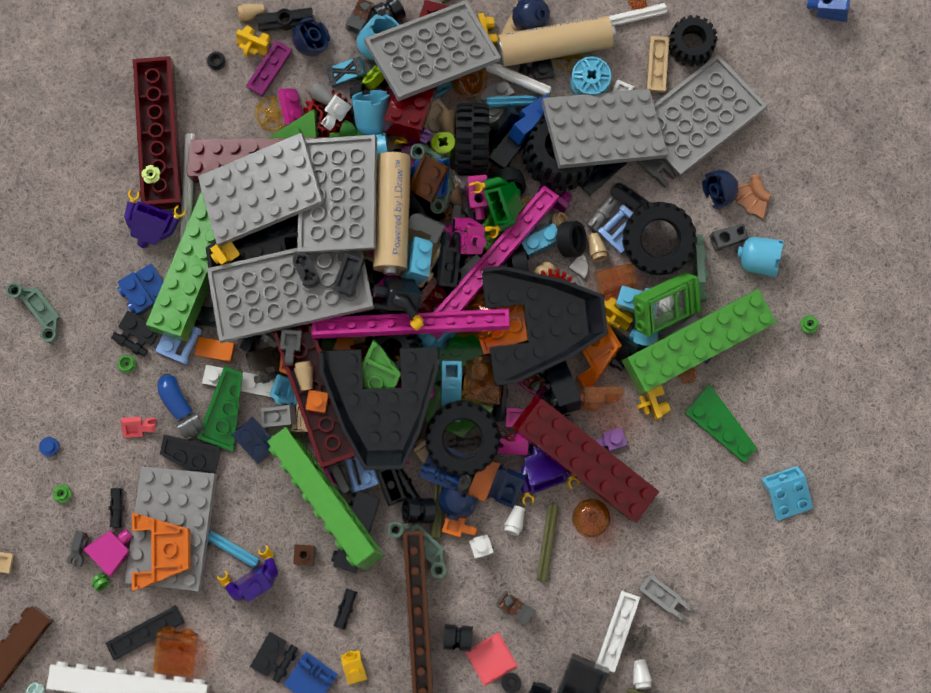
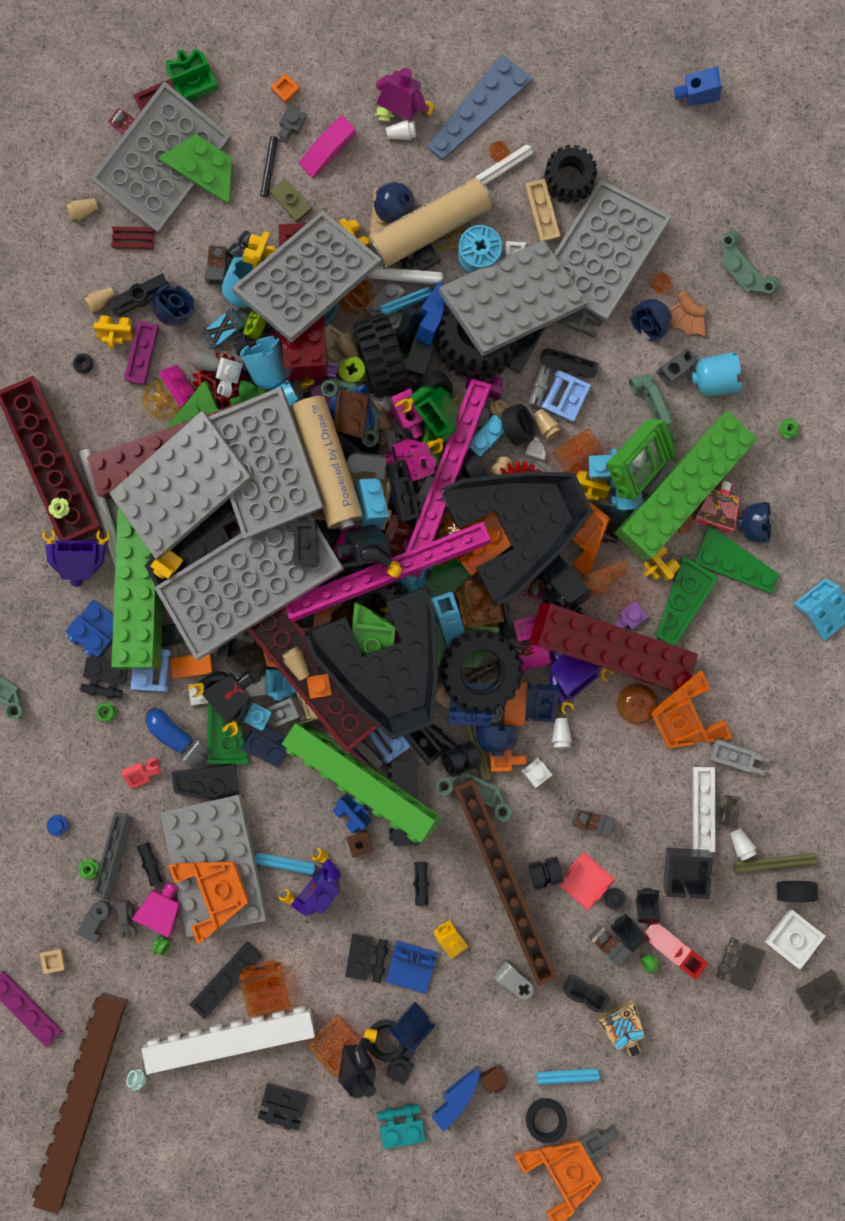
camera: 20 degrees left, 5 degrees up
(50, 539) = (93, 921): none -> dark grey leg
(86, 489) = (112, 855): none -> dark grey plate
(235, 383) = (226, 696): none -> black torso
(255, 411) = (257, 716): none -> medium azure bracket
(290, 342) = (270, 635): dark grey plate -> none
(302, 271) = (255, 557): black beam -> none
(311, 524) = (354, 810): none -> blue hips
(402, 14) = (261, 249): none -> yellow hips
(547, 543) = (601, 744): olive axle -> none
(622, 544) = (679, 720): none -> orange wing
(668, 438) = (685, 598): none -> green wing
(685, 238) = (636, 400): black tyre -> none
(722, 372) = (719, 509): none -> torso
(740, 155) = (665, 278): none -> clear orange plate
(751, 395) = (756, 522): none -> dark blue cylinder
(816, 173) = (743, 269): none -> sand green plate

